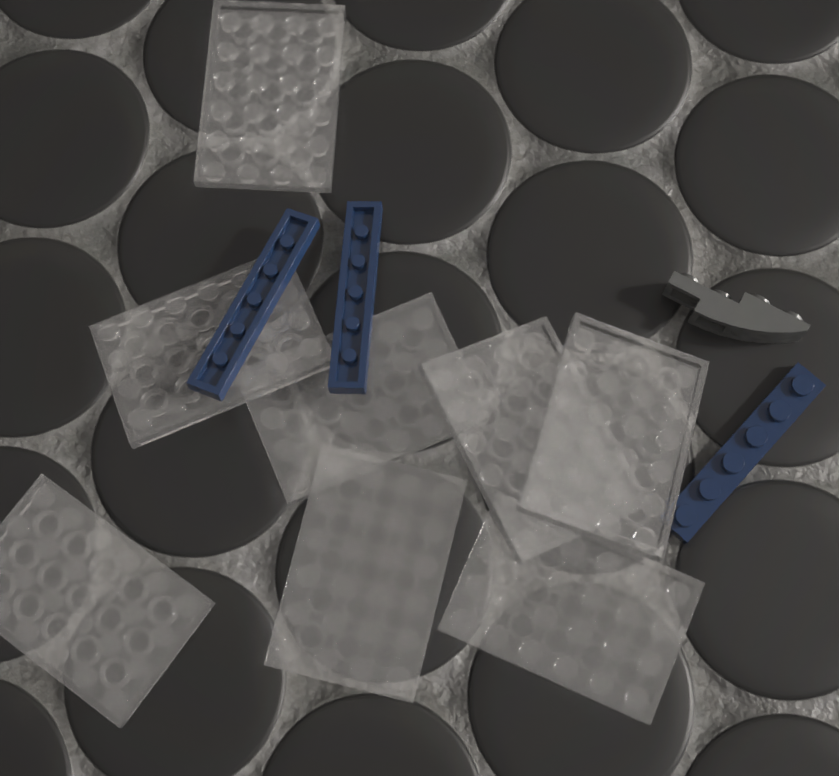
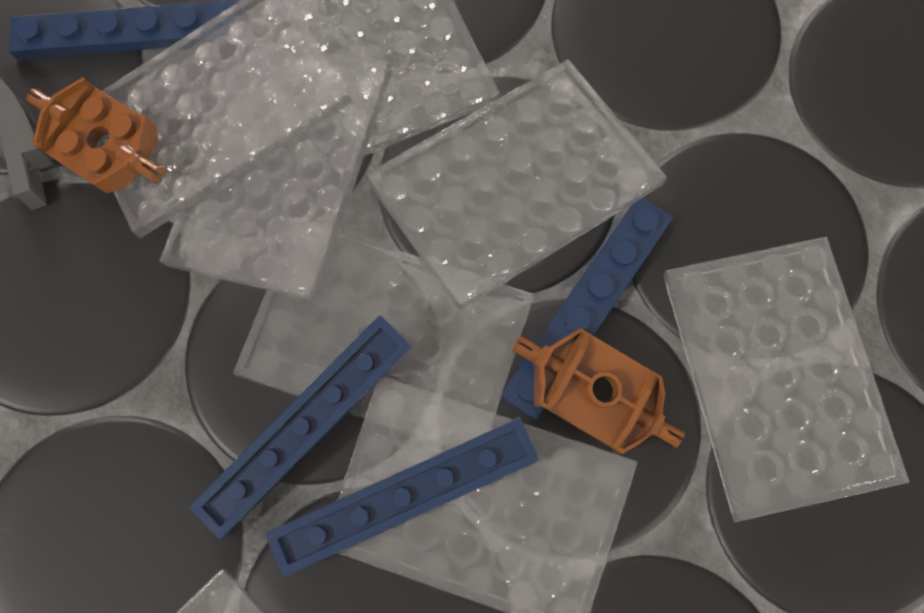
camera: 140 degrees left, 0 degrees up
(219, 474) = (565, 387): none -> dark orange plate
(248, 534) = (595, 292): none -> dark blue plate
(687, 338) = (78, 118): none -> dark orange plate

